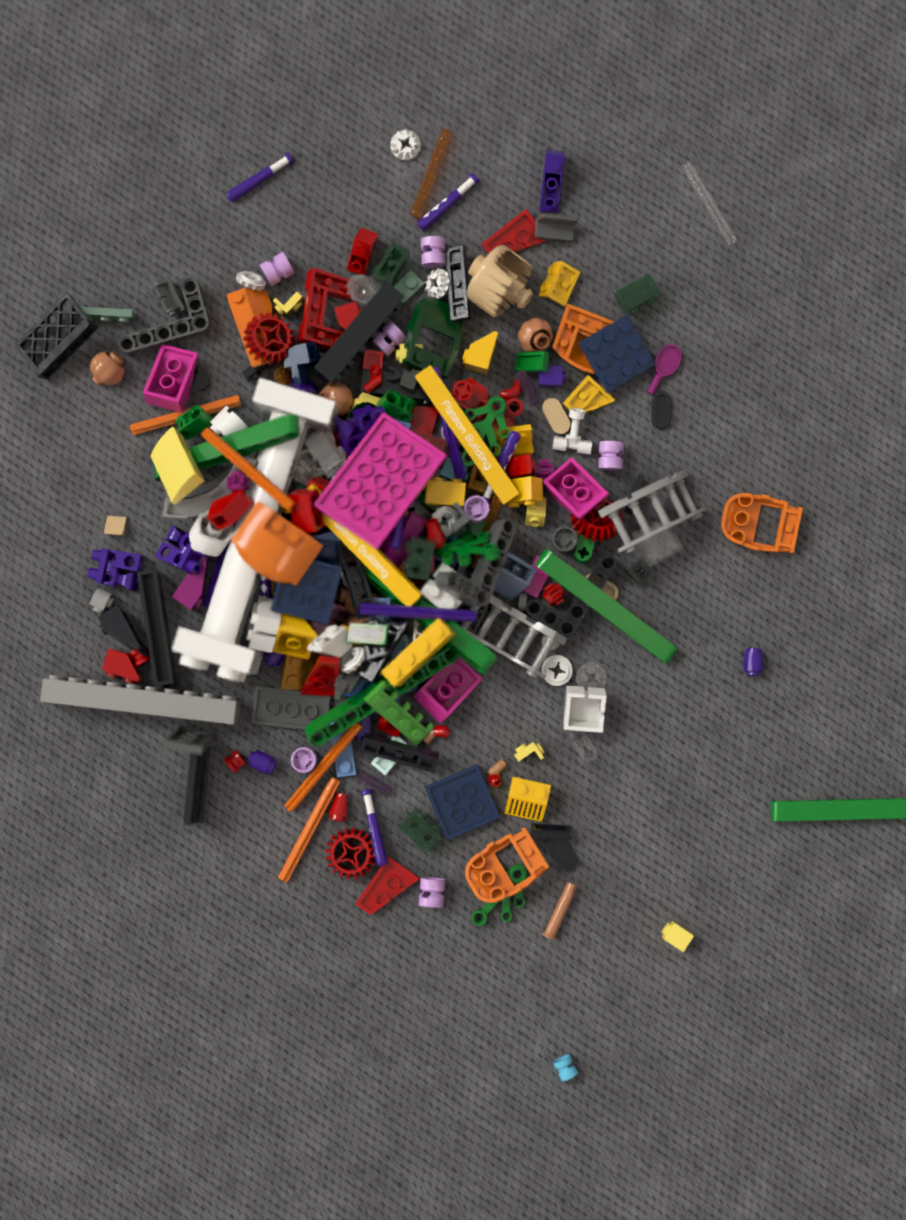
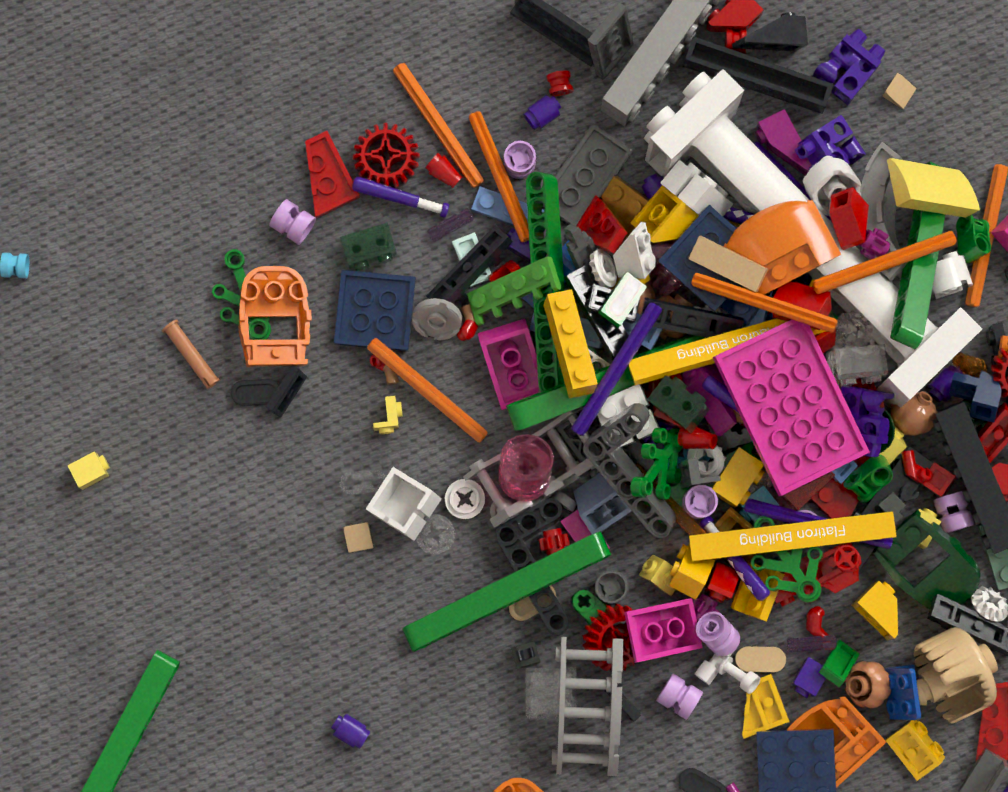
camera: 110 degrees right, 5 degrees down
(102, 600) = (821, 31): light grey plate -> none
(306, 574) = (728, 263): none -> tan tile
(320, 536) = (764, 302): none -> orange axle
(445, 755) = (437, 319): none -> light grey tile
(497, 736) = (427, 390): none -> orange axle
(507, 642) = (529, 456): none -> clear pink wheel
(514, 402) = (803, 612): red cone -> none
(527, 799) = (338, 385): yellow slope -> none
(533, 306) = (904, 698): none -> blue bracket
(557, 451) = (717, 633): none -> lavender wheel
(621, 728) = (358, 537): none -> tan slope

